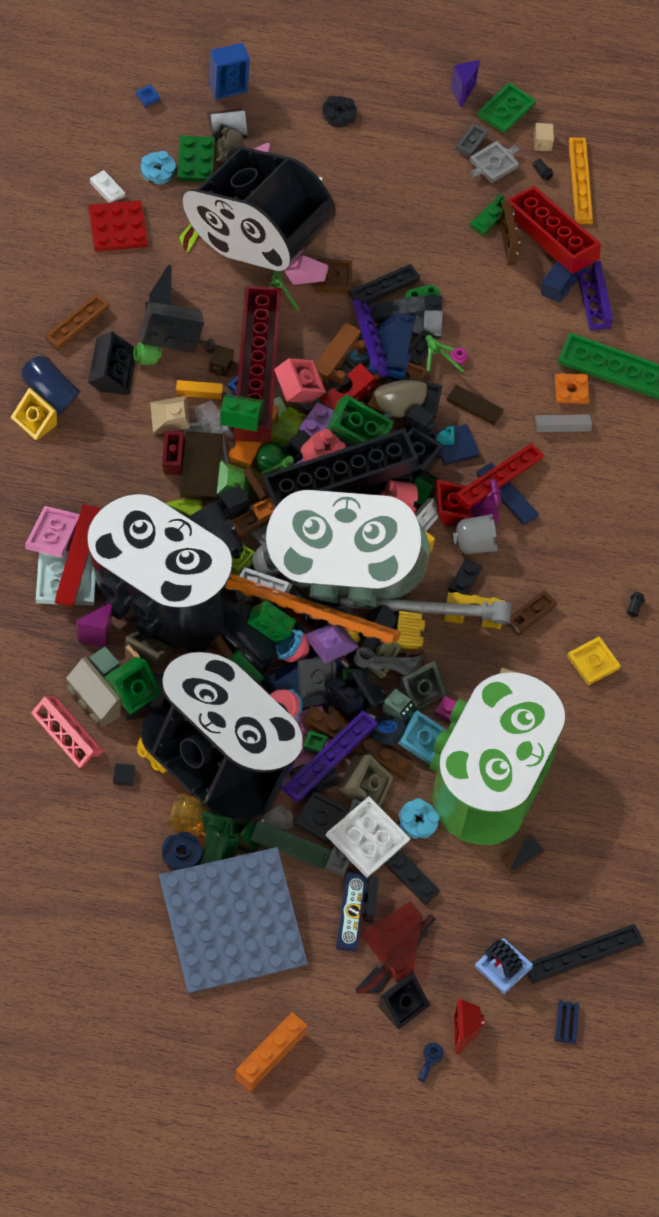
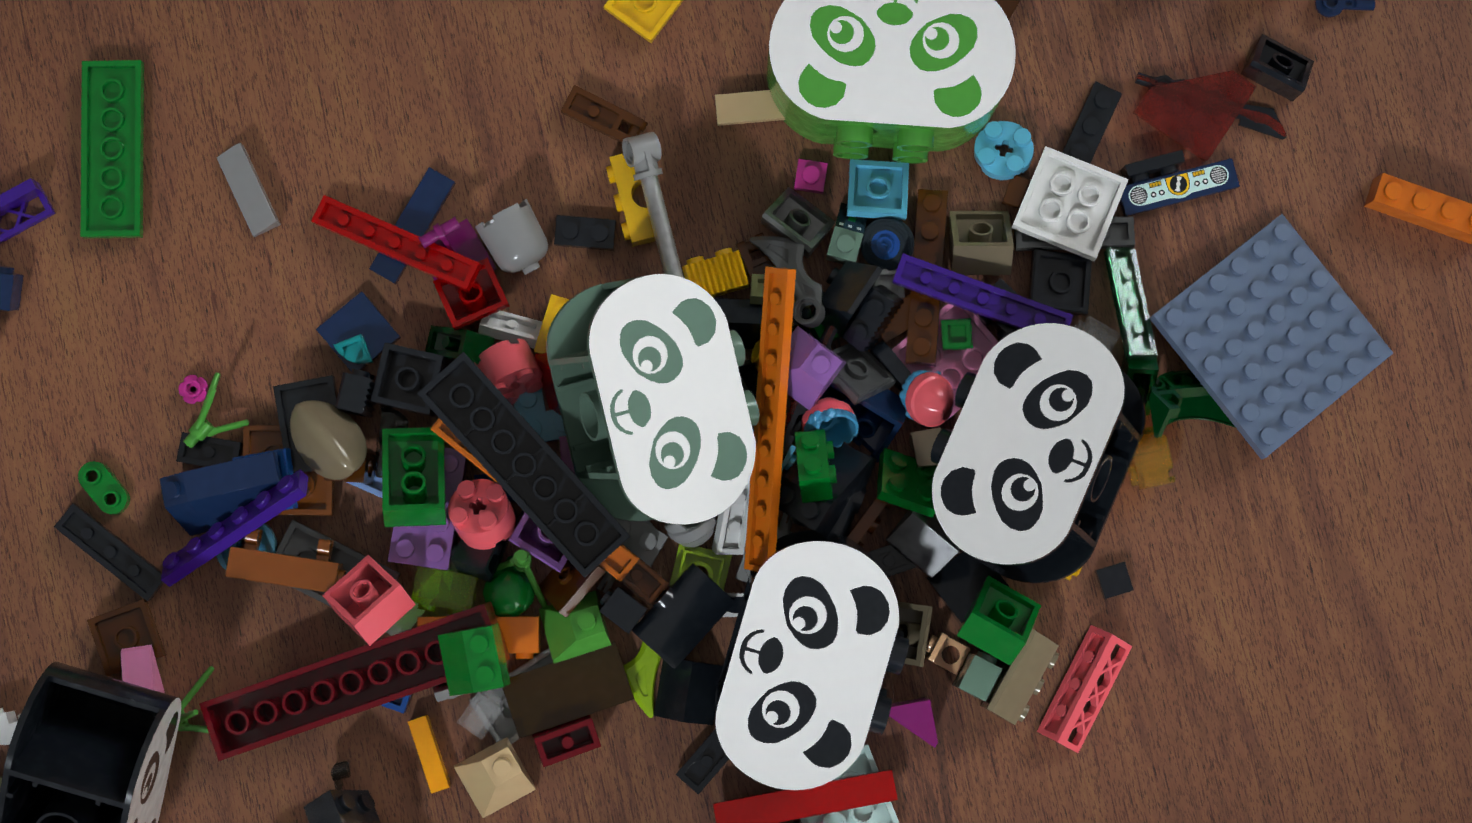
camera: 110 degrees left, 25 degrees up
(177, 842) = (1208, 437): dark blue plate -> none
(221, 360) = (365, 742): dark brown brick -> none
(362, 382) = (320, 509): red arch -> none
(424, 308) = (137, 473): black wedge -> none
(475, 405) = (273, 331): dark brown tile -> none
(578, 382) = (169, 187): orange piece -> none

